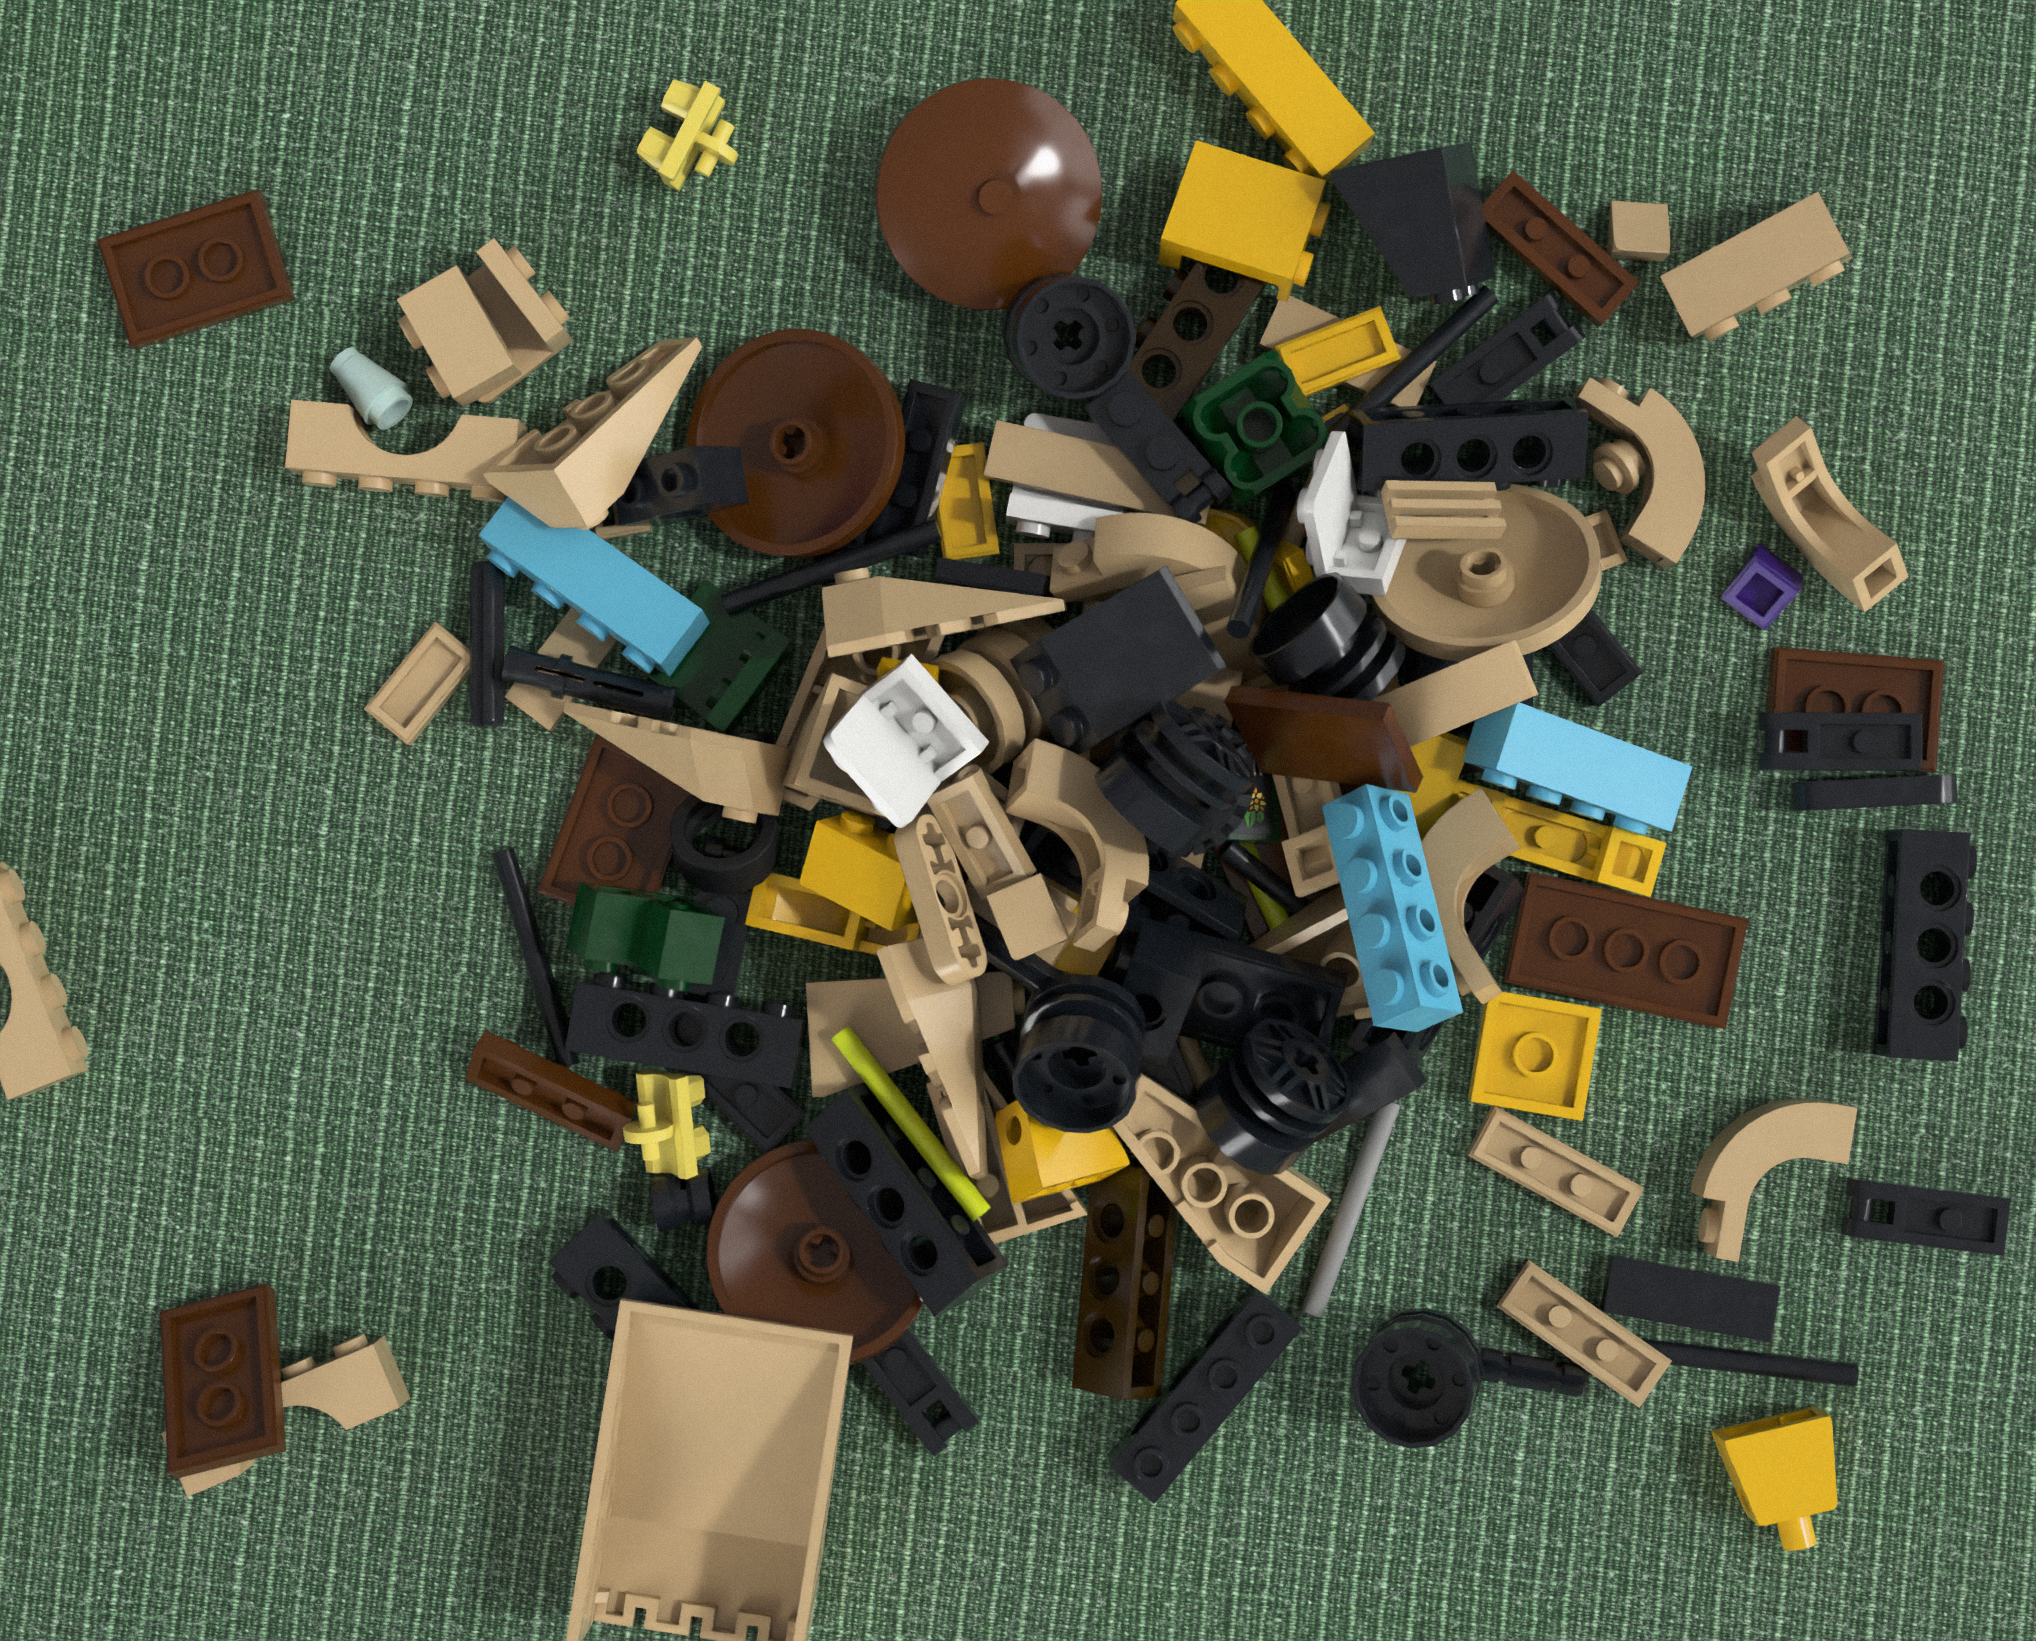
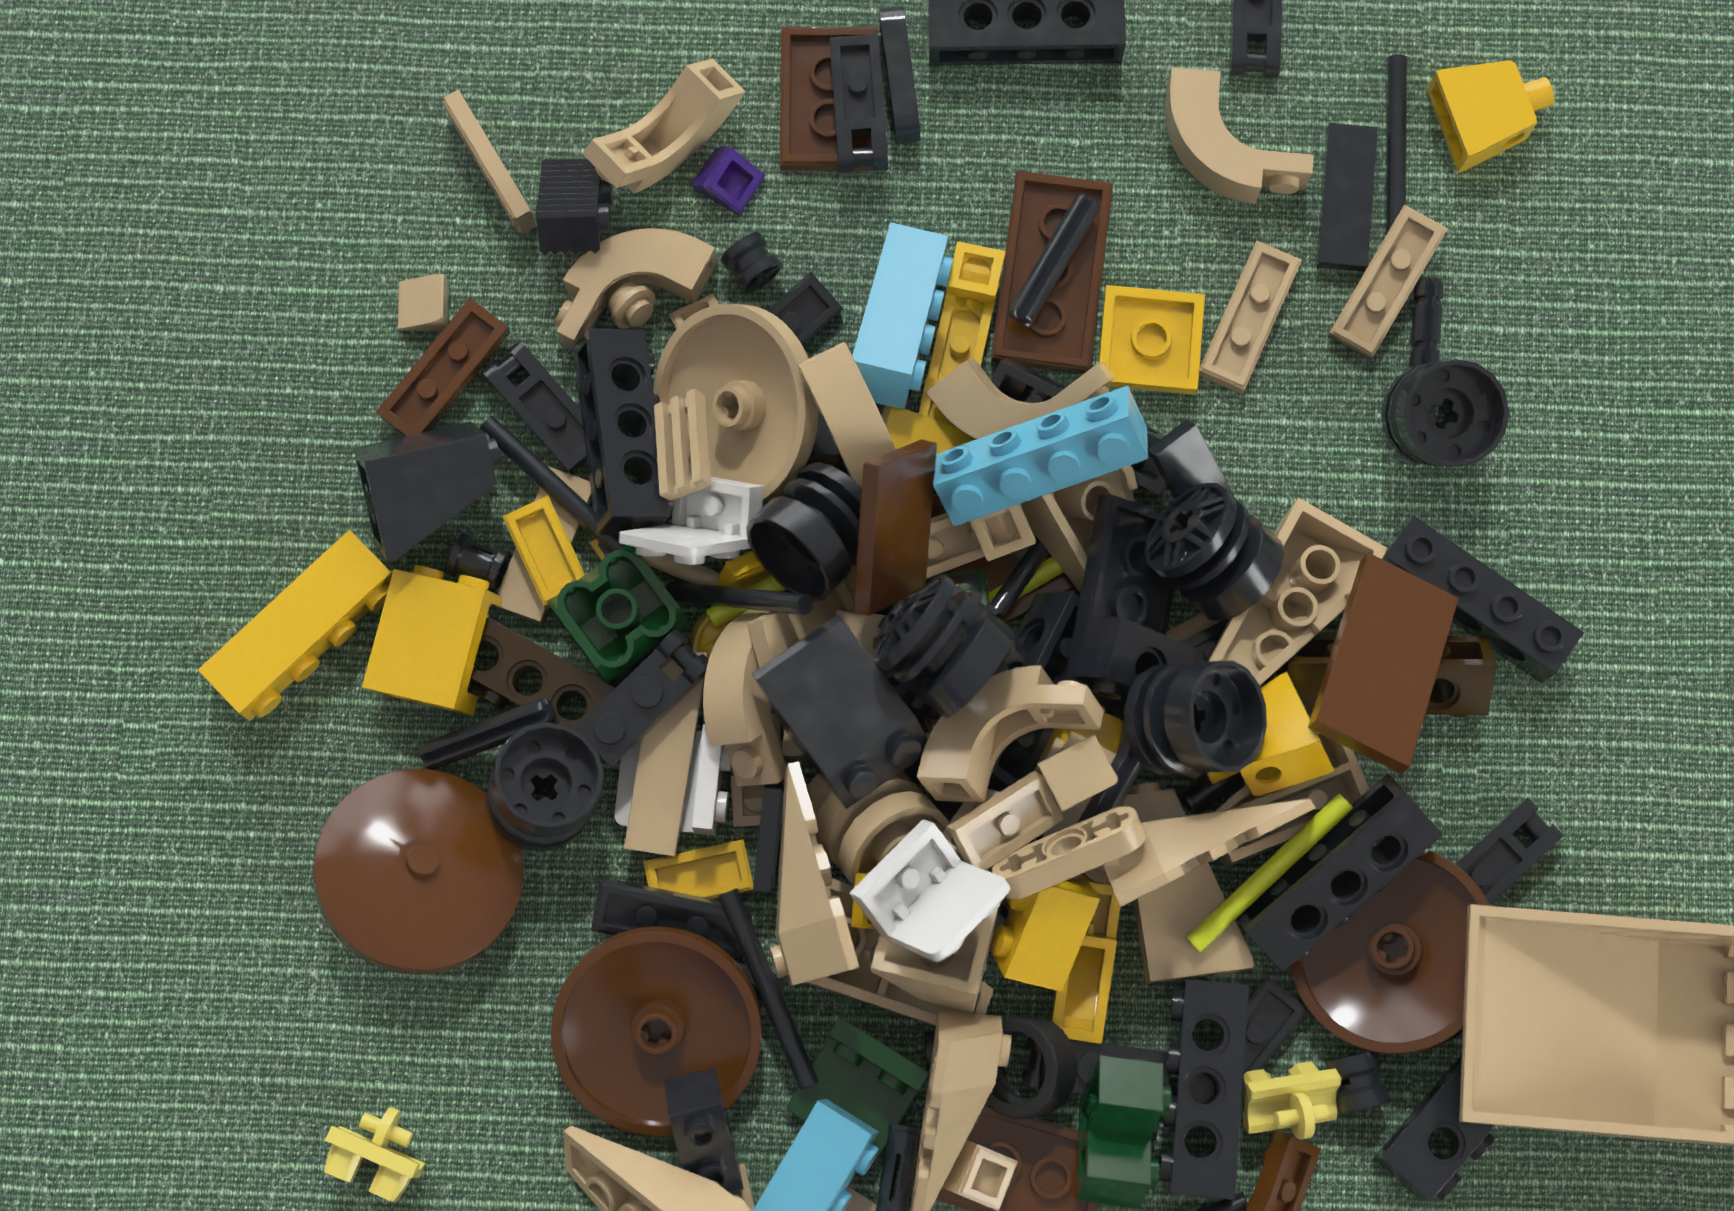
camera: 95 degrees left, 10 degrees down
(616, 782) = (981, 1175): none -> tan slope
(1129, 1272) = (1384, 663): none -> reddish brown tile
(1134, 275) = (484, 734): none -> black axle
(1331, 277) = (477, 561): none -> black bush
(1350, 1209) = (1307, 489): light grey bar -> none
(1636, 951) = (1053, 260): none -> black axle
(1659, 606) = (751, 262): none -> black wheel
(1736, 401) = (572, 206): none -> black brick
(1757, 268) = (453, 197): tan wedge -> none
(1801, 312) = (489, 162): none -> tan tile

